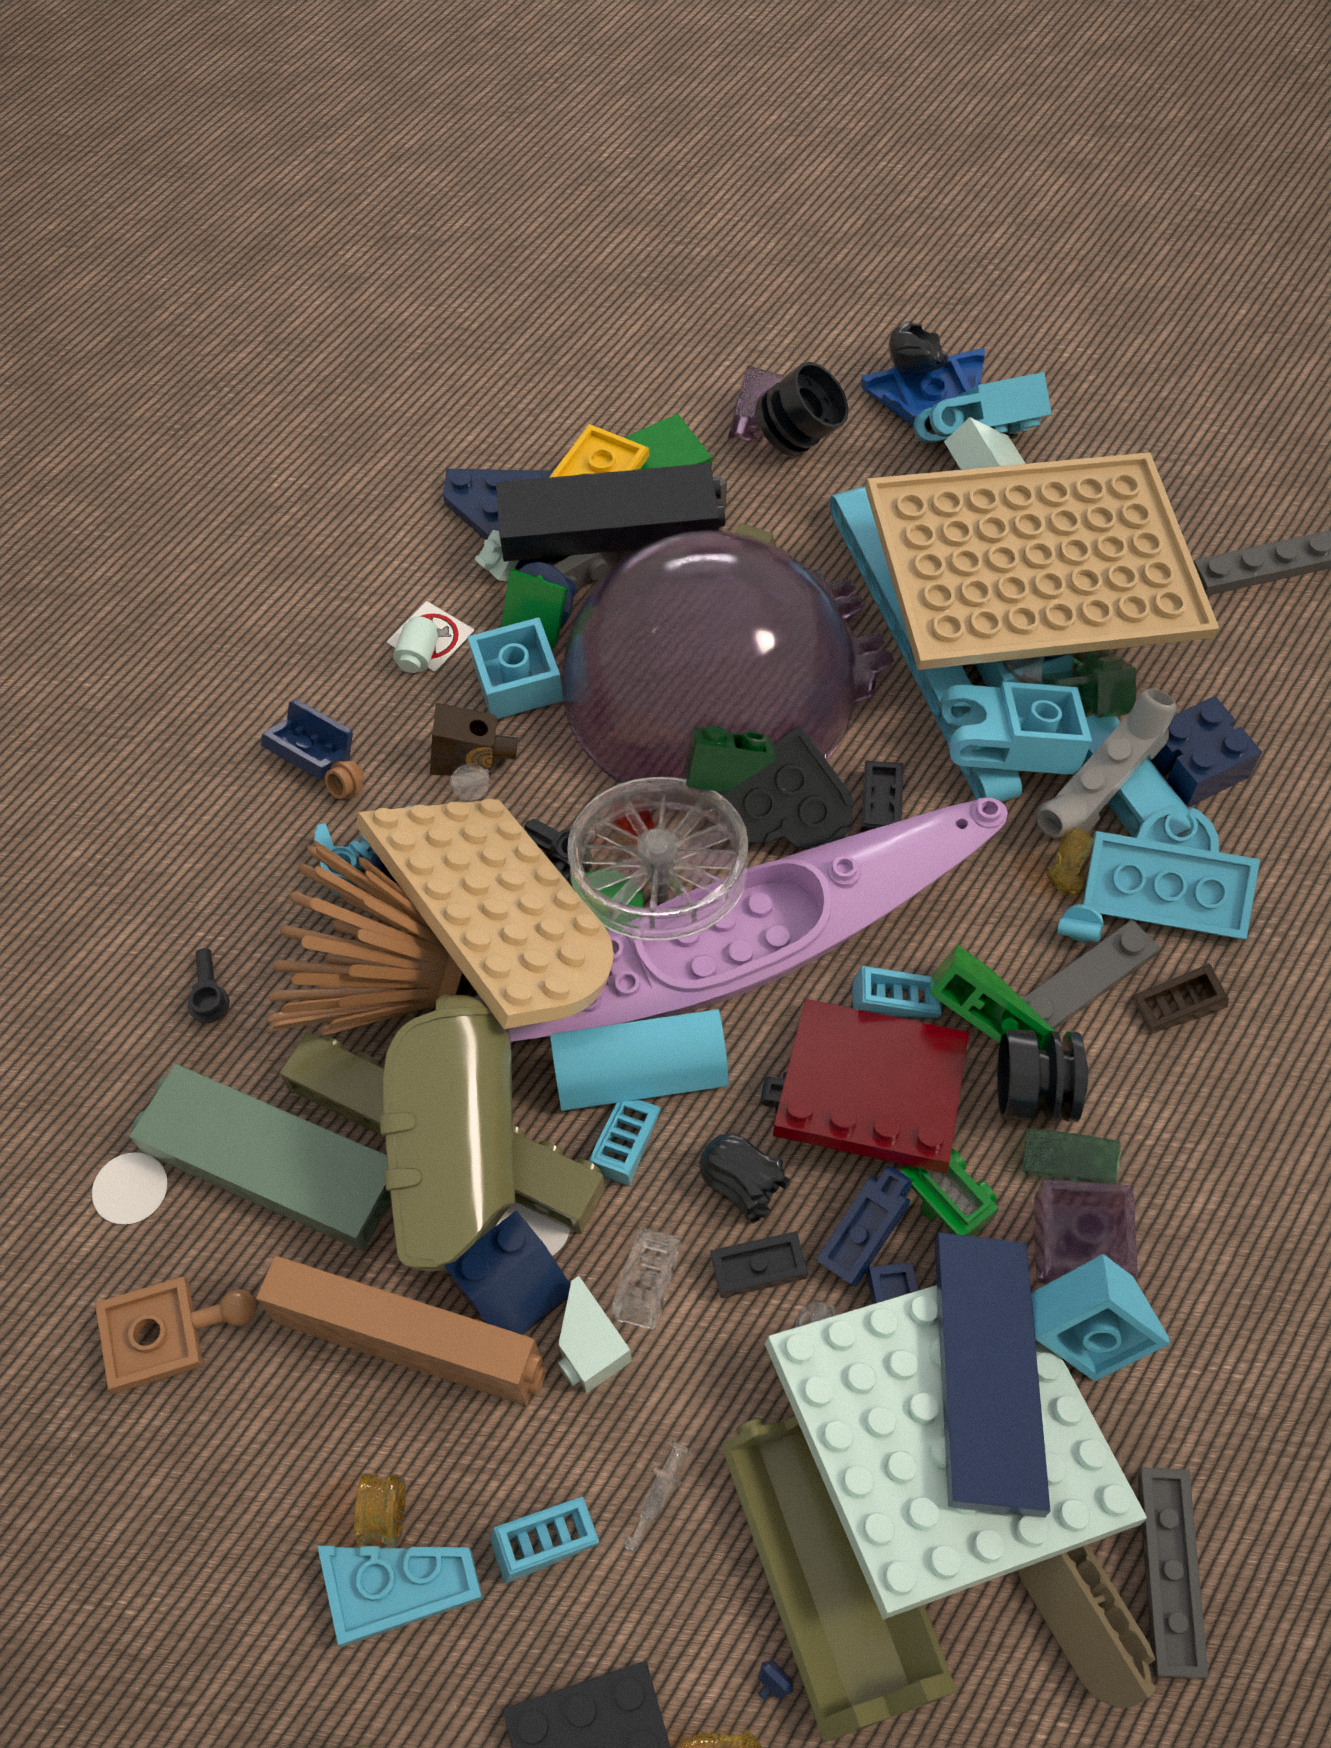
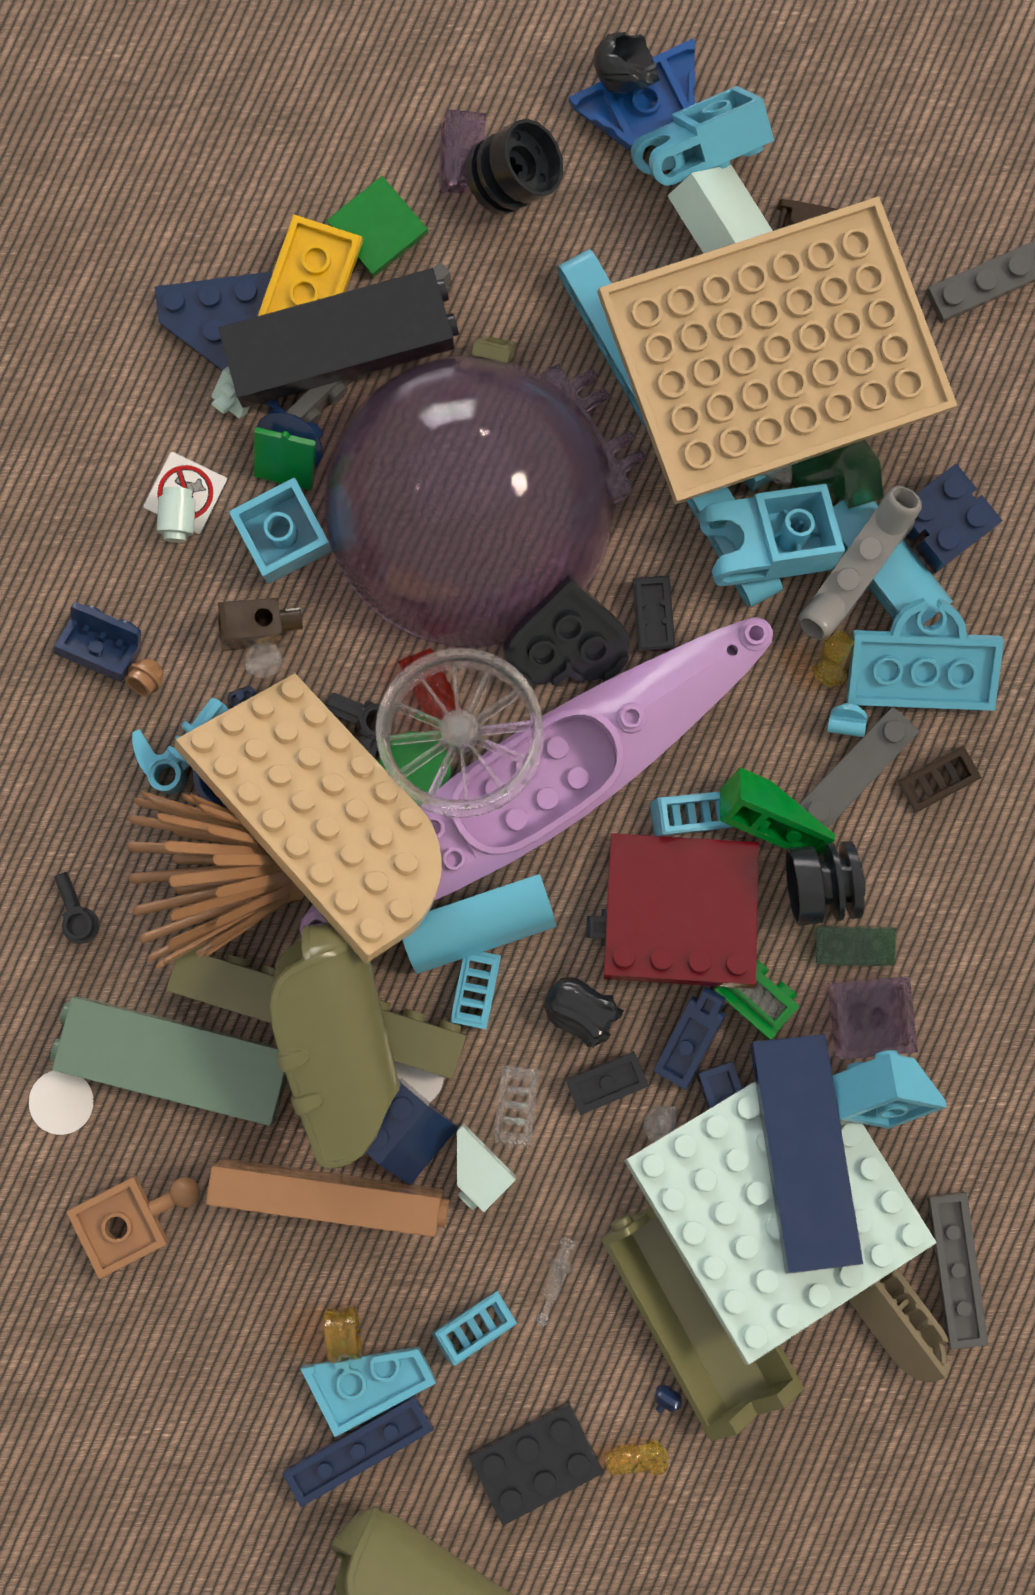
camera: 10 degrees left, 25 degrees up
(362, 1672) = (358, 1450): none -> dark blue plate
(725, 759) = (507, 626): dark green slope -> none

